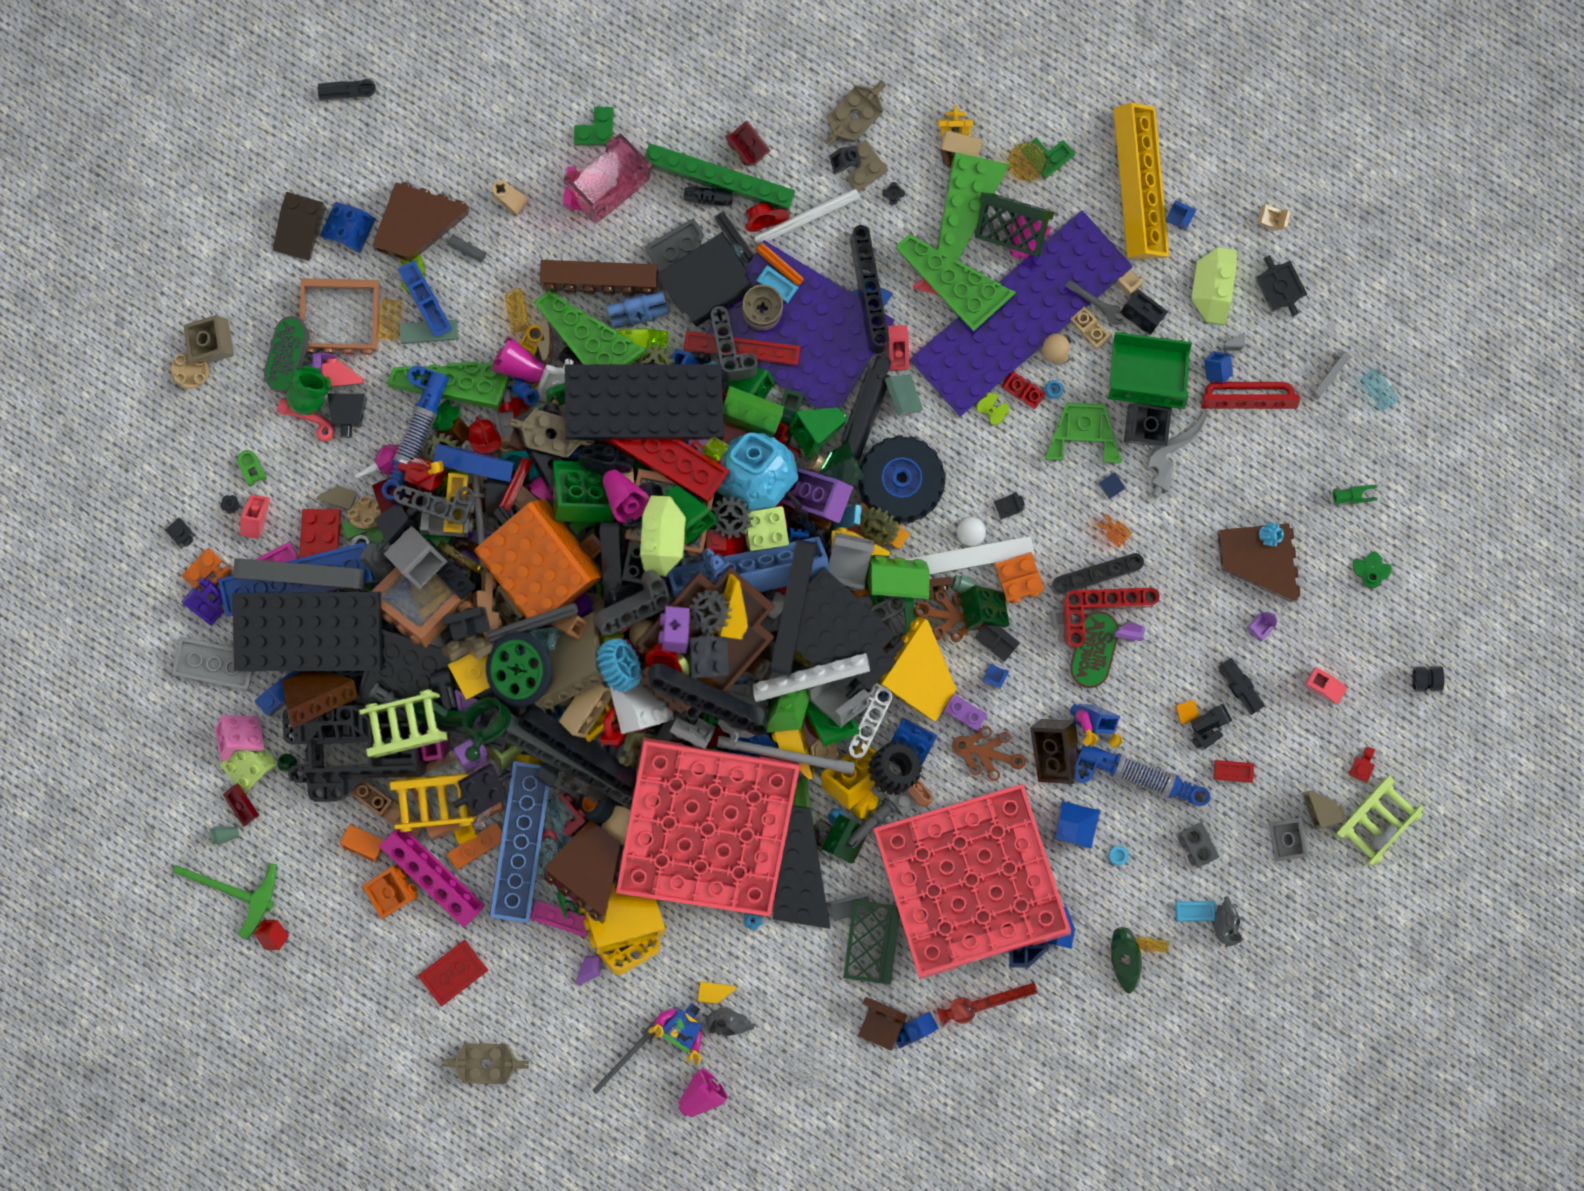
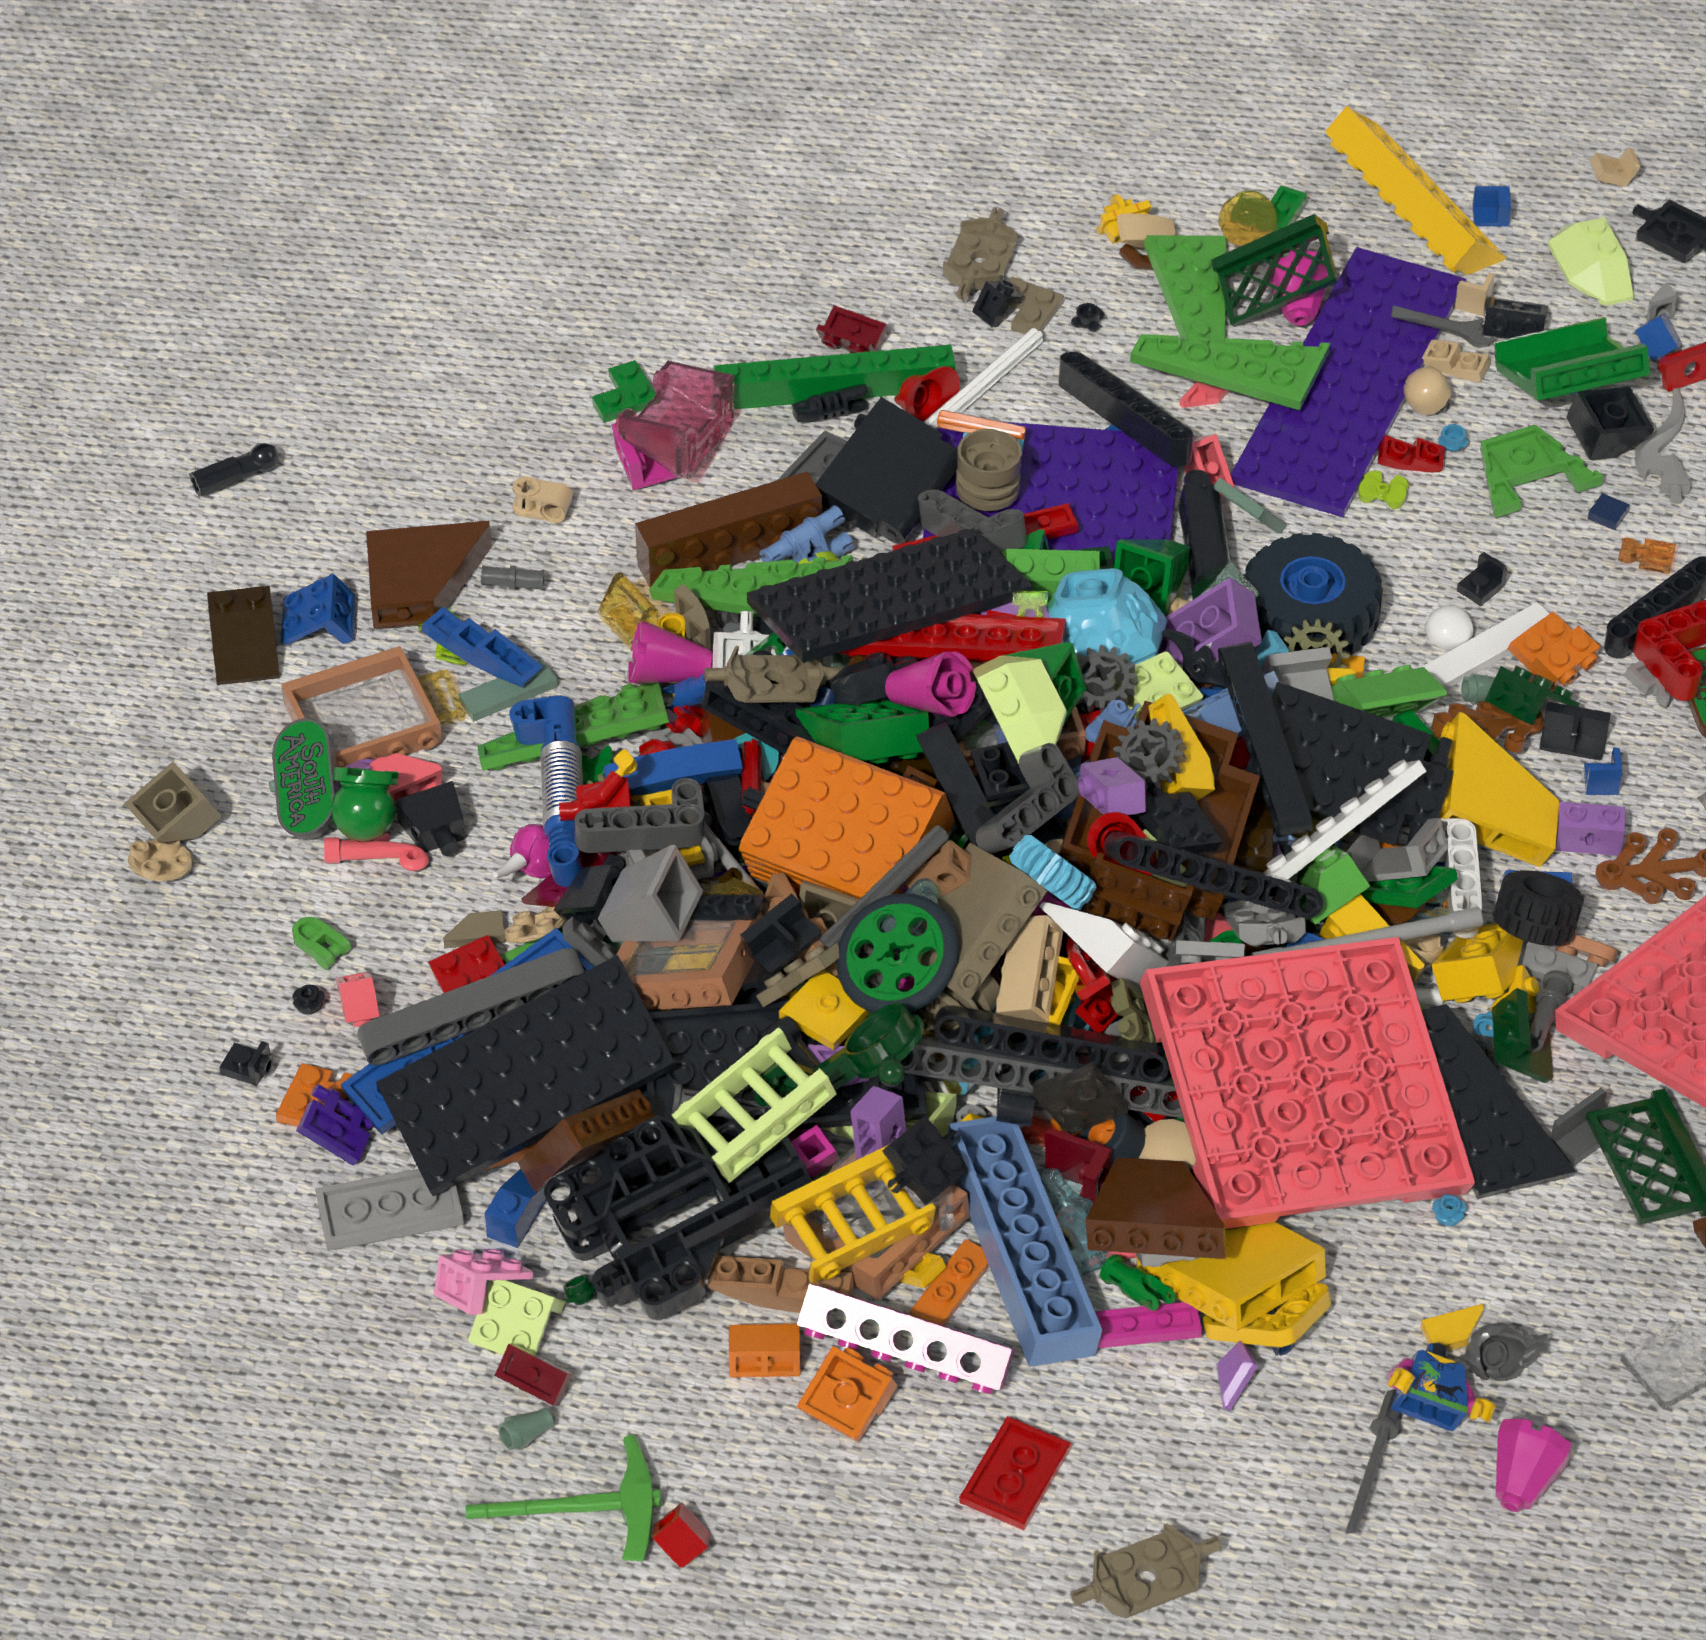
camera: 25 degrees left, 35 degrees down
(939, 584) = (1455, 694): reddish brown bracket -> none

